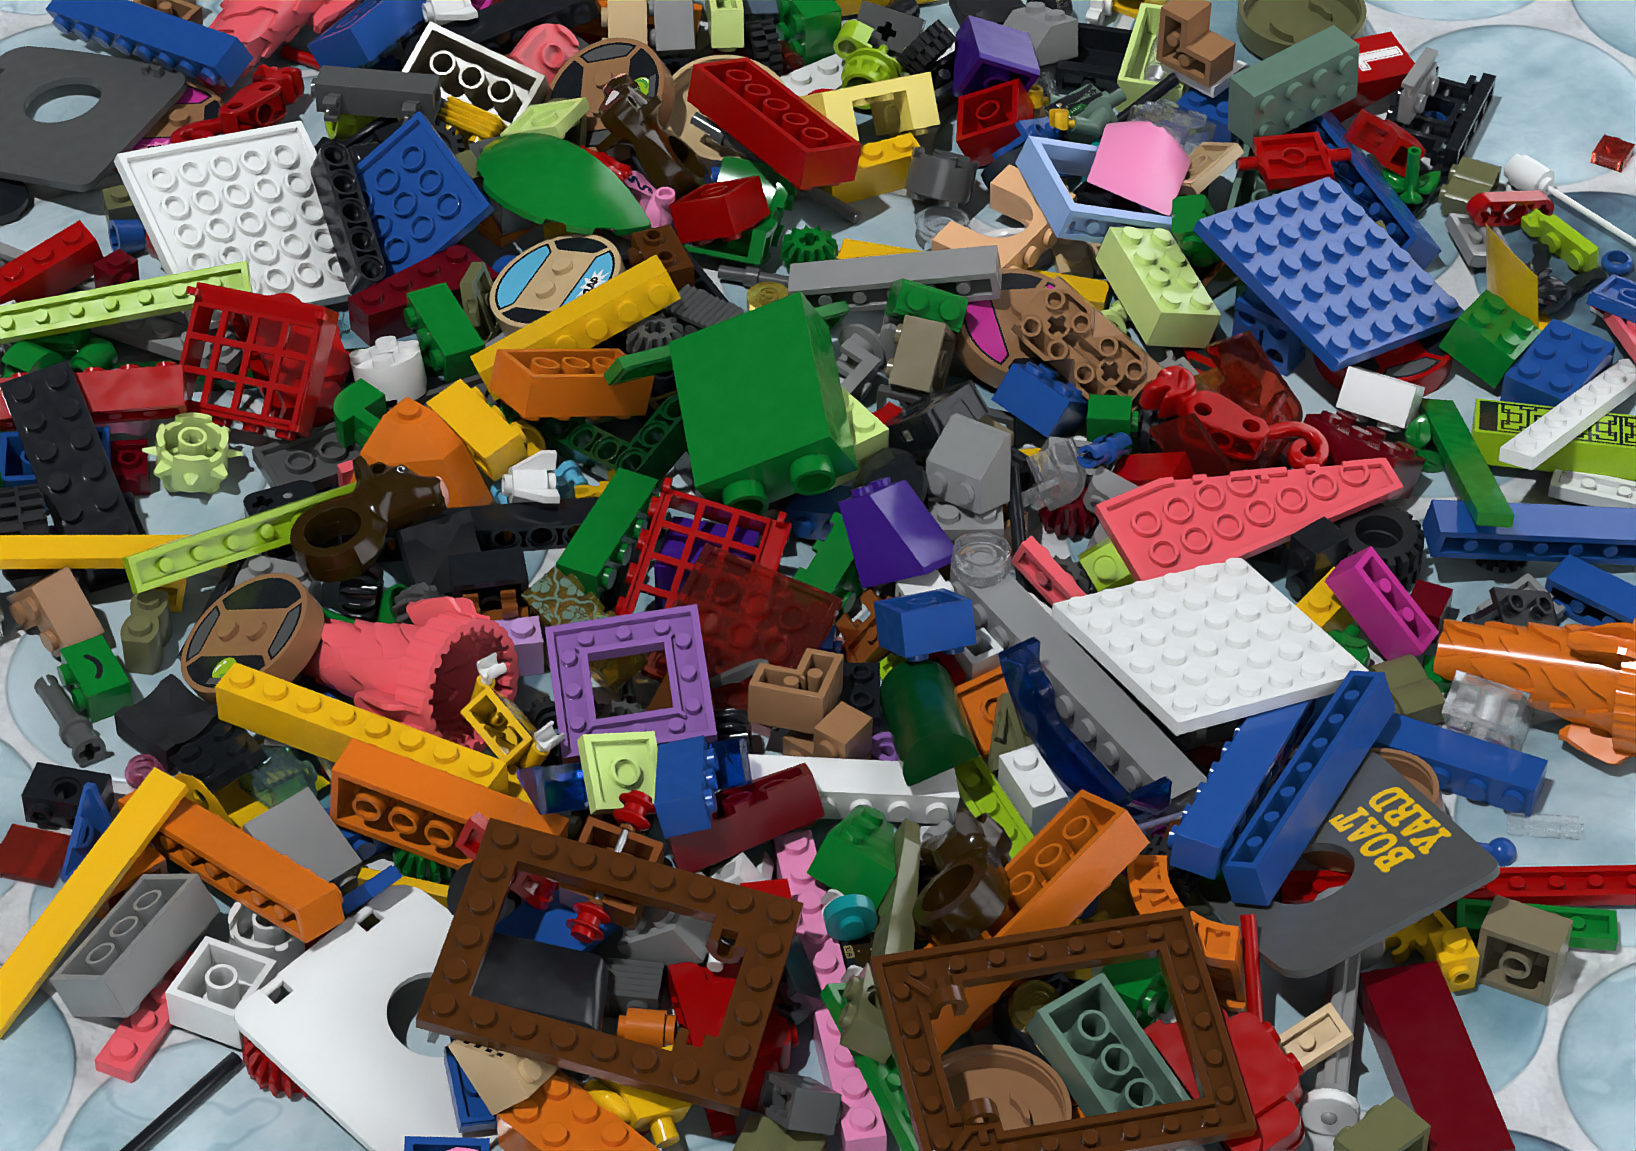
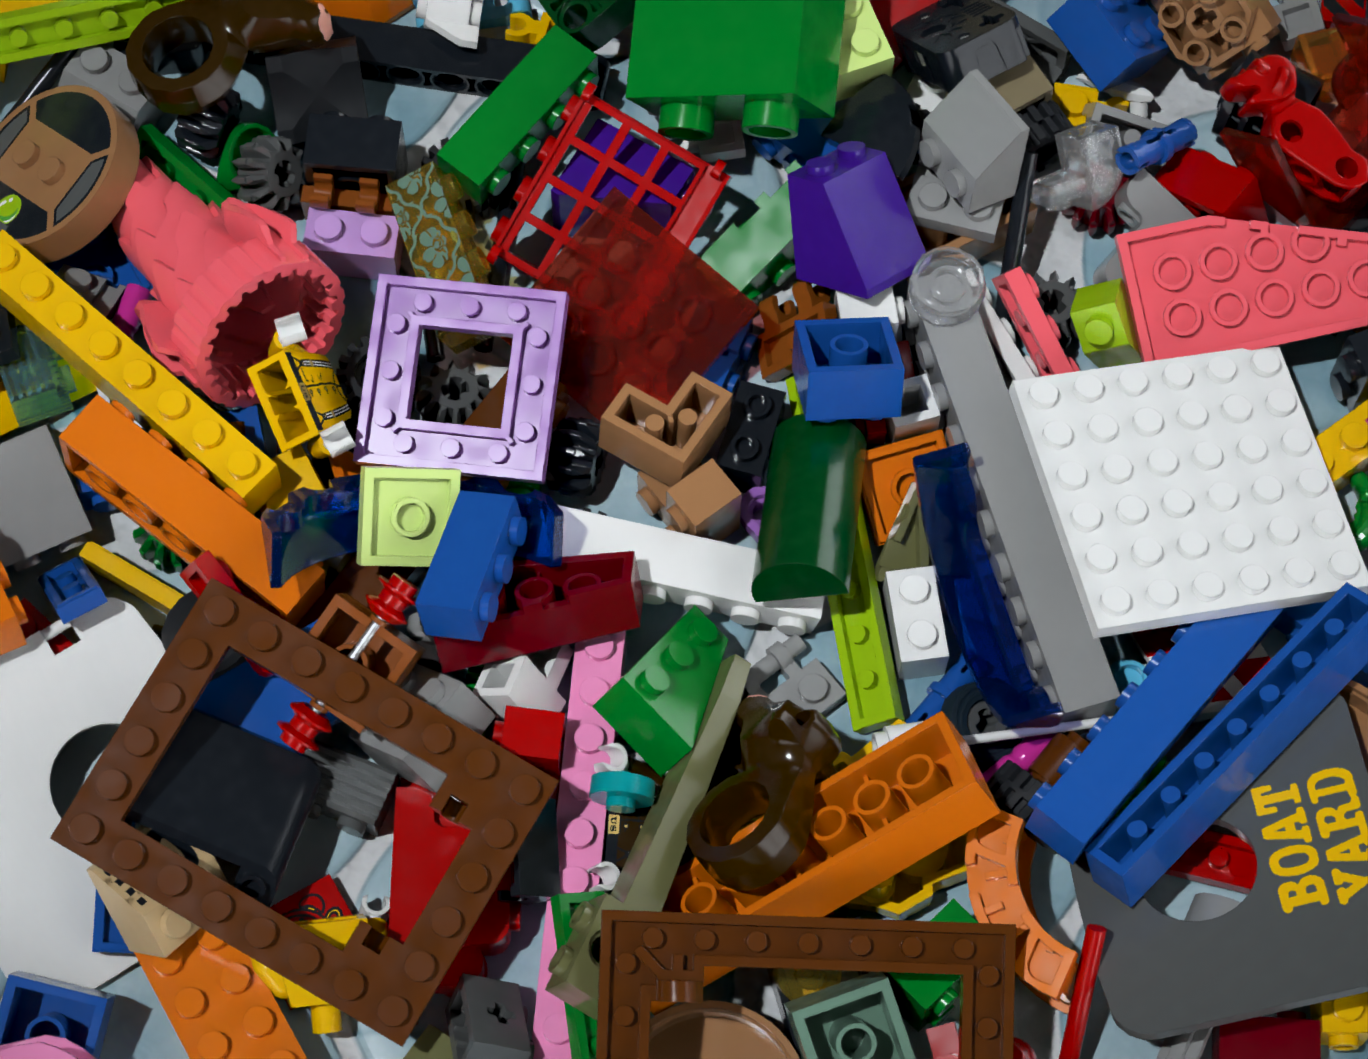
camera: 15 degrees right, 25 degrees up
(648, 1027) = (354, 857): orange brick -> none
(736, 674) = (604, 377): dark grey bar -> none
(1110, 416) = (1185, 90): green brick -> none

